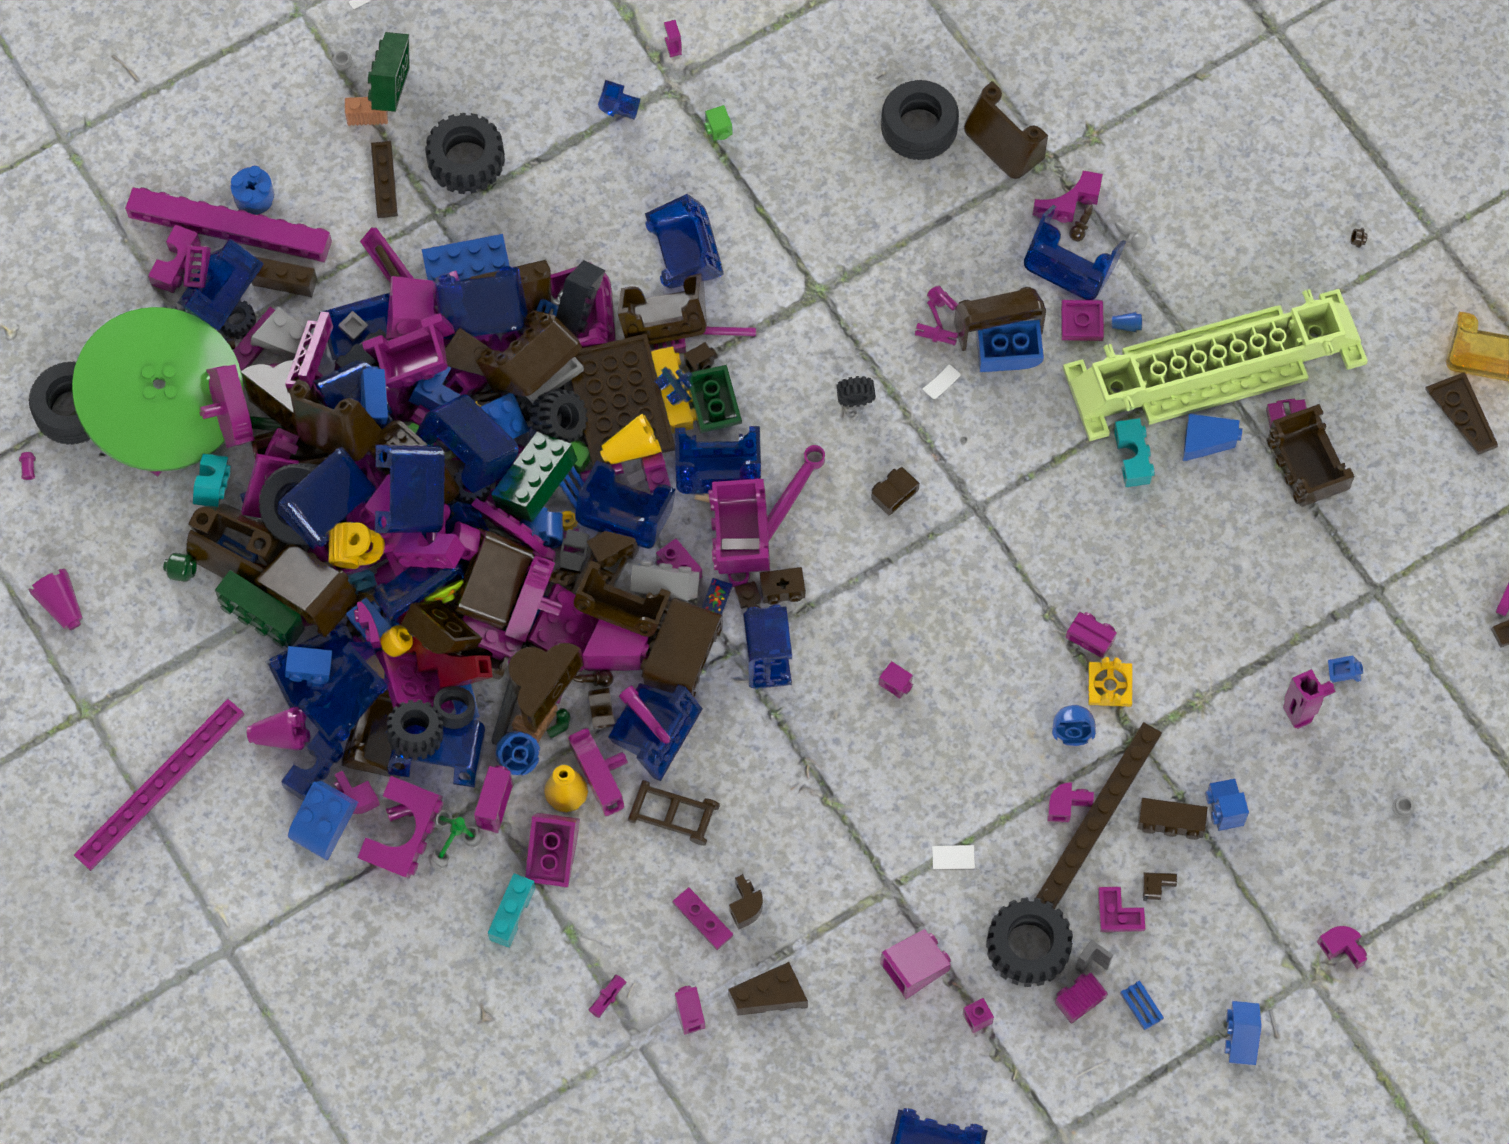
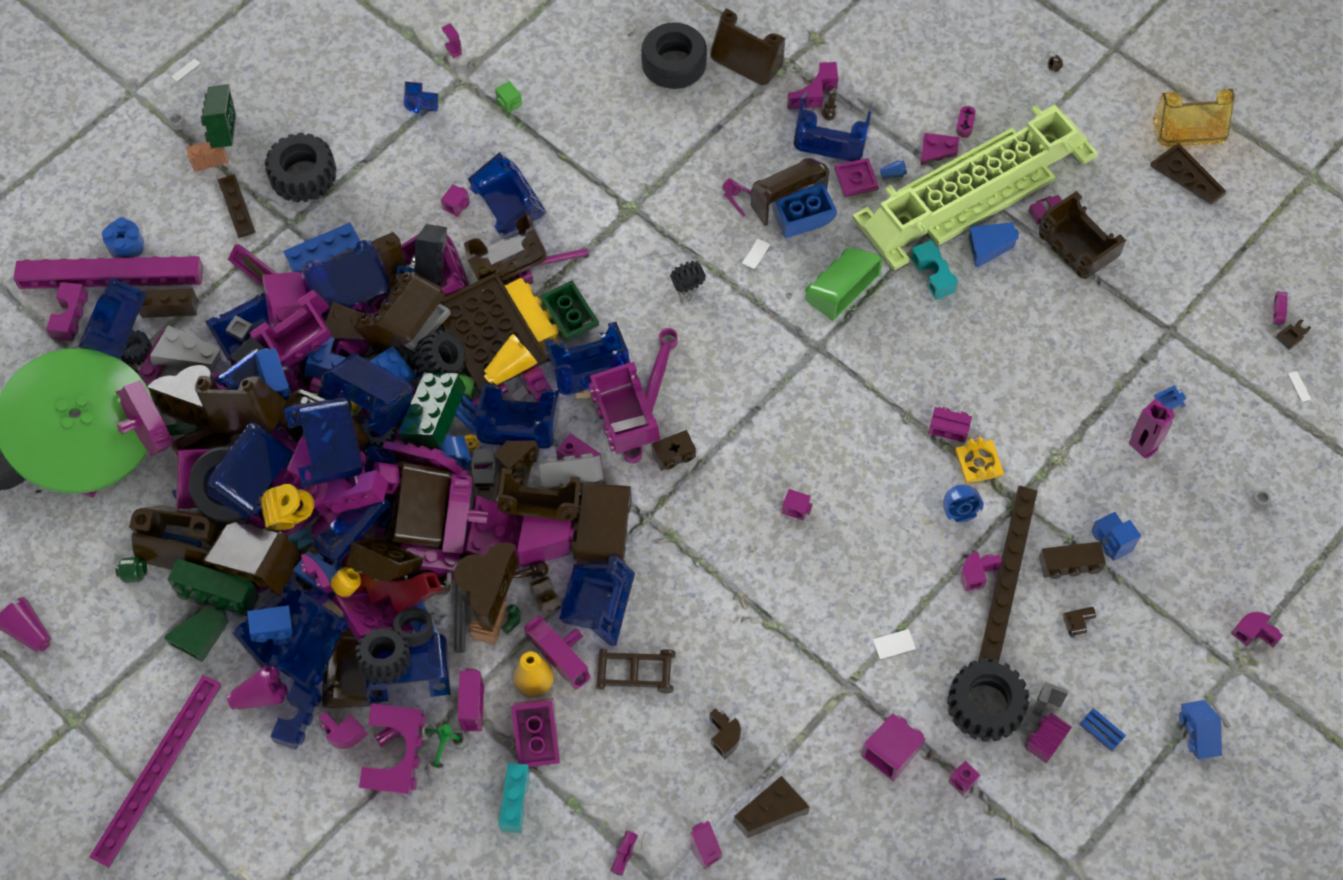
camera: 15 degrees left, 5 degrees down
(191, 250) = (80, 298): magenta slope -> none
(212, 480) = (142, 486): teal arch -> none
(234, 653) = (198, 633): none -> dark green slope
(282, 444) = (200, 438): magenta brick -> none
(314, 353) = (209, 349): fence -> none
(321, 819) = (316, 761): blue brick -> none
(445, 593) = (380, 528): lime dish -> none
(517, 752) = (481, 653): blue cylinder -> none
(562, 578) = (480, 490): dark brown tile -> none
(626, 234) = (455, 200): none -> magenta brick
(630, 697) = (570, 578): magenta plant -> none
(668, 378) = (538, 313): clear blue hips -> none
(700, 358) = (546, 281): dark brown brick -> none
(702, 918) = (690, 758): magenta plate -> none
(717, 596) = (619, 472): clear blue tile -> none
(748, 595) = (646, 468): dark brown plate -> none
(767, 646) = (676, 501): clear blue windscreen -> none
(895, 490) = (745, 349): dark brown brick -> none
(936, 334) = (740, 216): magenta pin -> none
(1027, 440) = (843, 281): none -> bright green windscreen
(1114, 917) = (1052, 658): magenta plate -> none
(1188, 306) = (938, 147): none -> magenta wing
(1234, 285) = (964, 121): none -> magenta beam
(1497, 691) = (1299, 386): none -> white sticker

